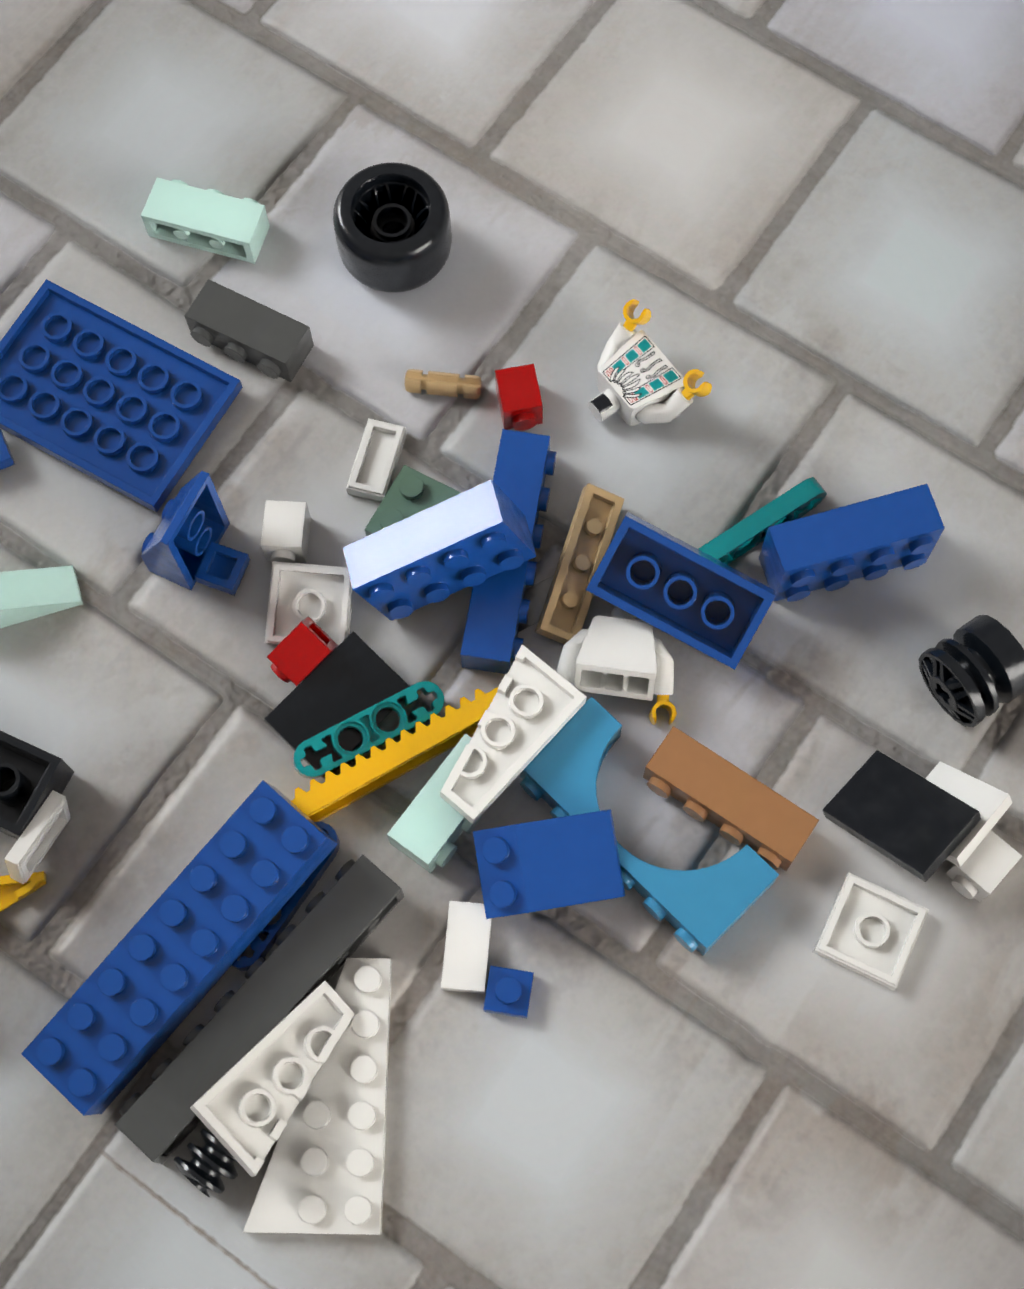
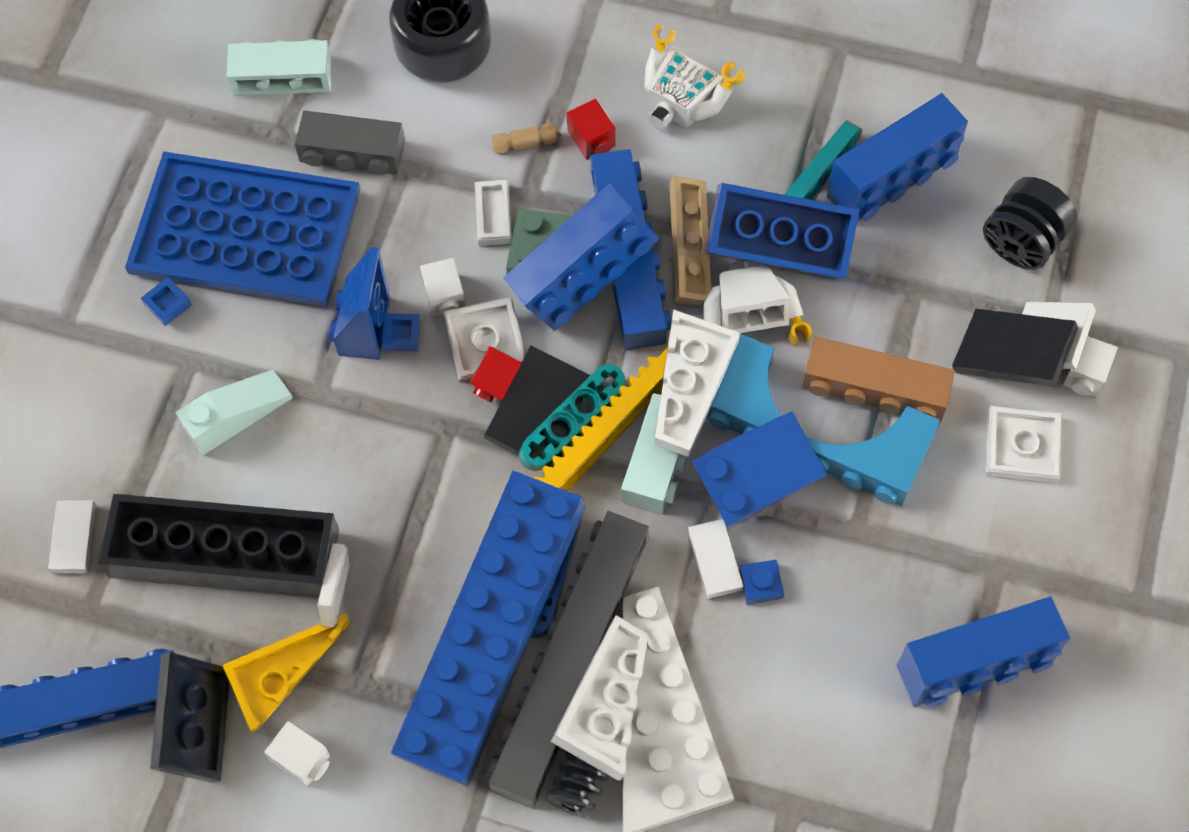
camera: 20 degrees left, 5 degrees down
(721, 1168) = (982, 652): none -> blue brick

